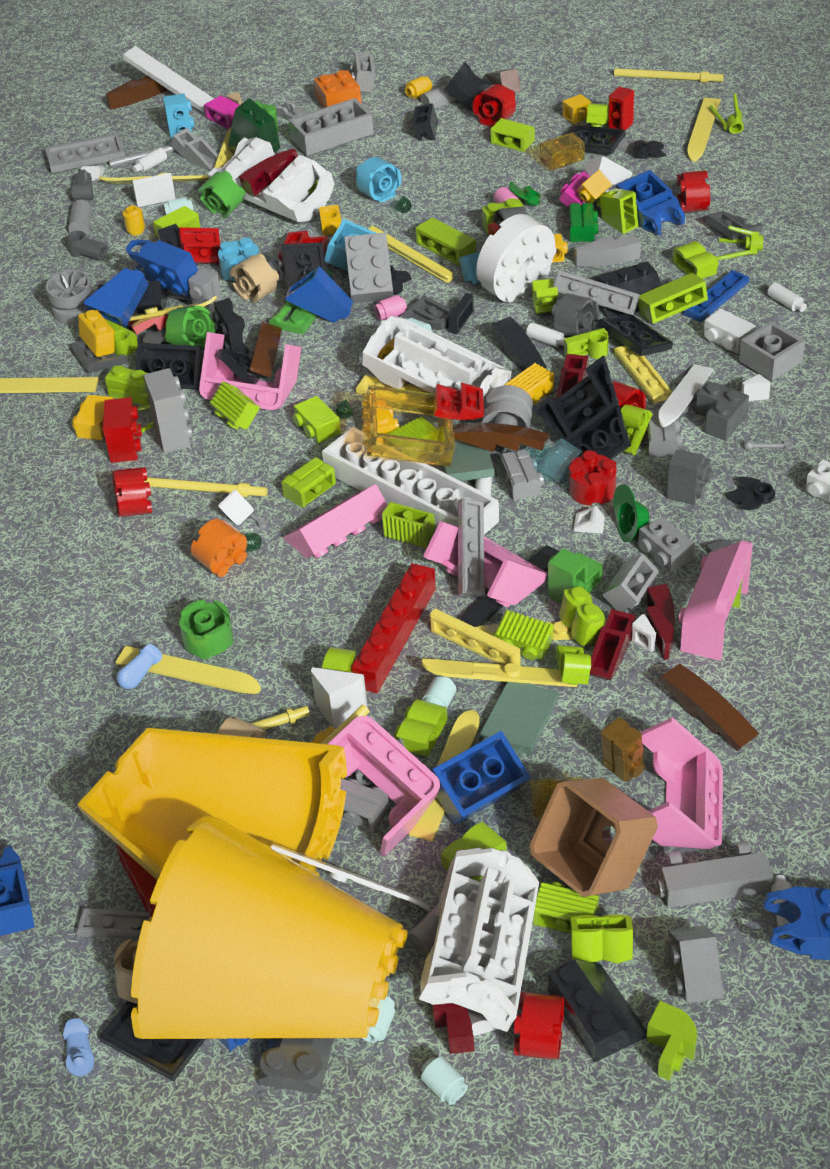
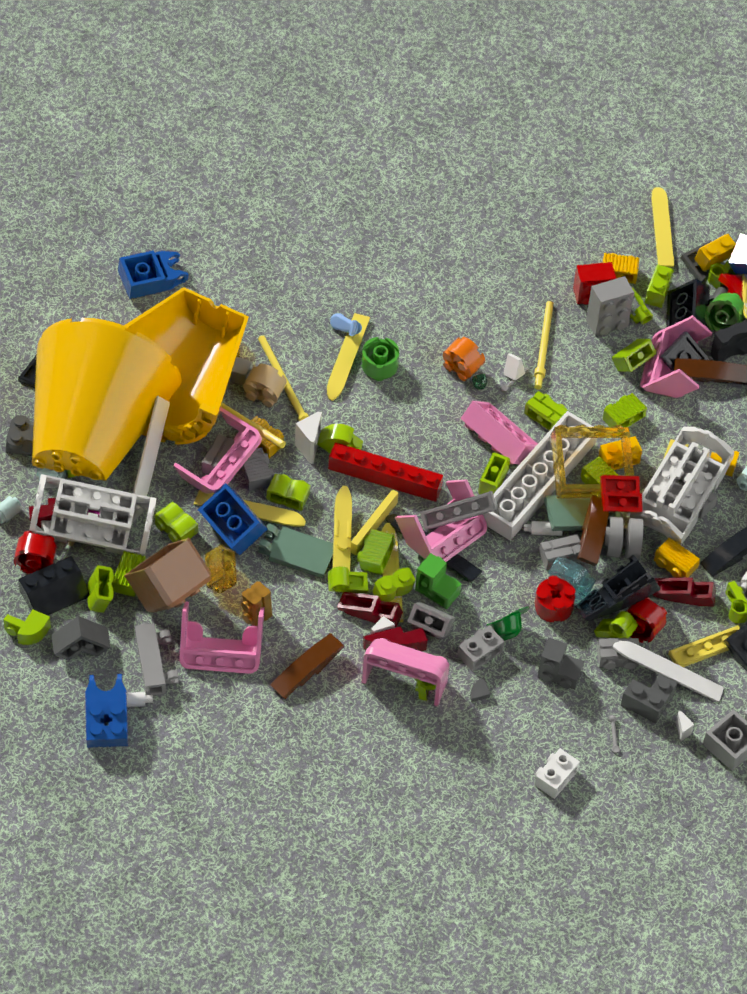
camera: 80 degrees right, 10 degrees up
(79, 1053) = (34, 333): light blue piece -> none
(131, 492) = (522, 298): red brick -> none
(344, 410) = (642, 431): clear green hinge -> none
(440, 691) = (319, 501): light aqua brick -> none
(589, 521) = (511, 601): white slope -> none
(752, 493) = (548, 714): black plate -> none

